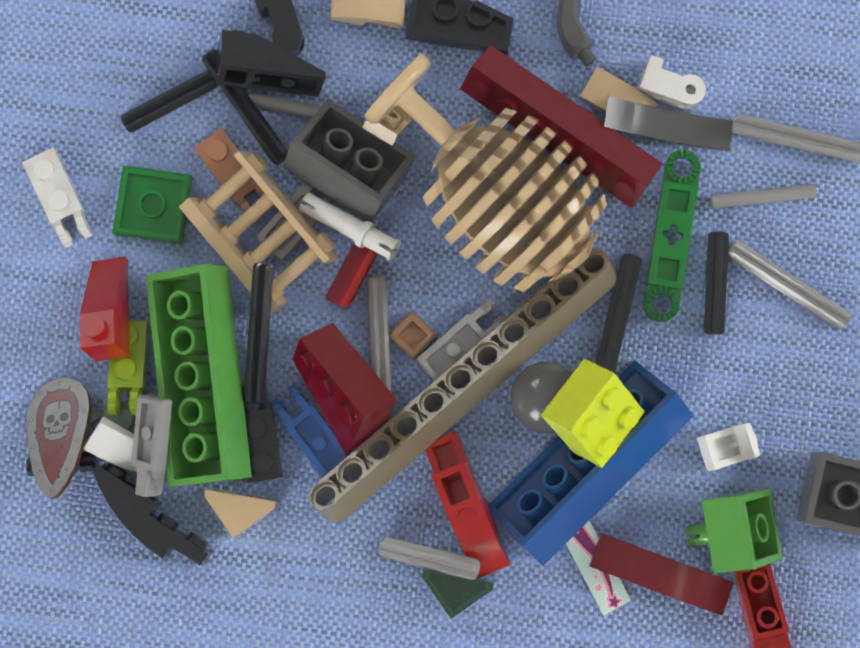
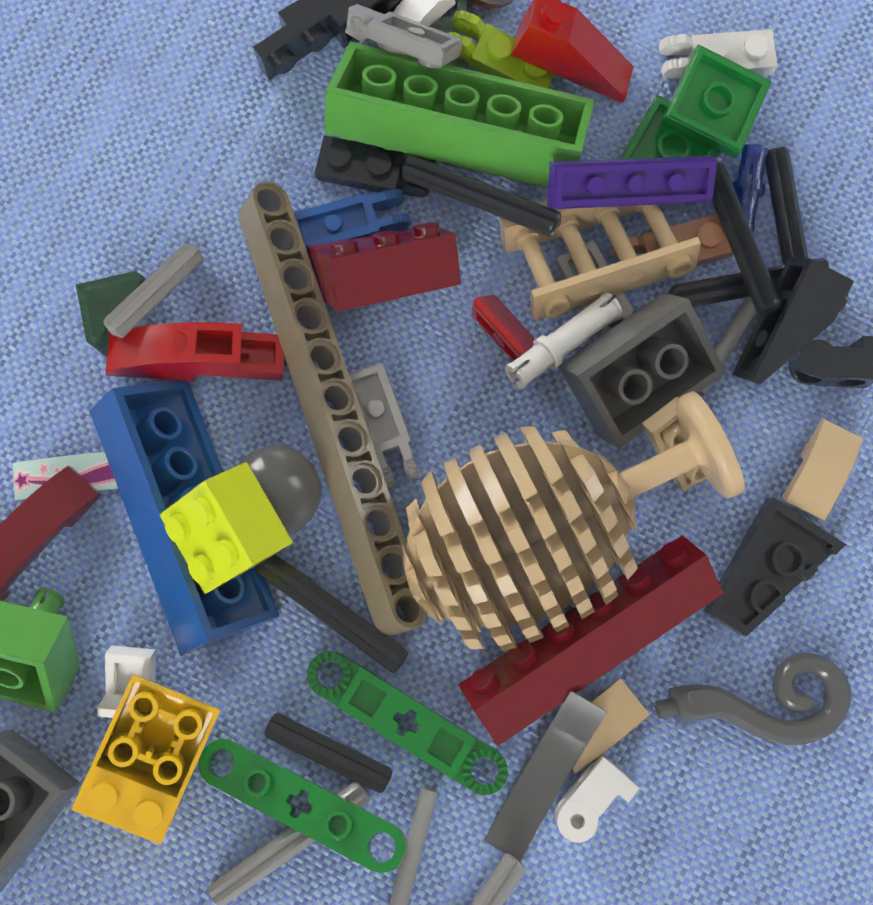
camera: 110 degrees right, 5 degrees down
(105, 183) = (716, 101): none -> green tile
(142, 137) = (751, 163): none -> clear blue pin
(206, 220) = (631, 182): none -> dark purple tile
(215, 125) = (743, 244): none -> black axle
(237, 510) = (298, 114): tan slope -> none
(379, 328) = (423, 334): light grey axle -> none
(412, 335) = (413, 373): medium nougat tile -> none
(761, 258) = (331, 820): none -> green piece
(775, 405) = (146, 759): none -> yellow slope

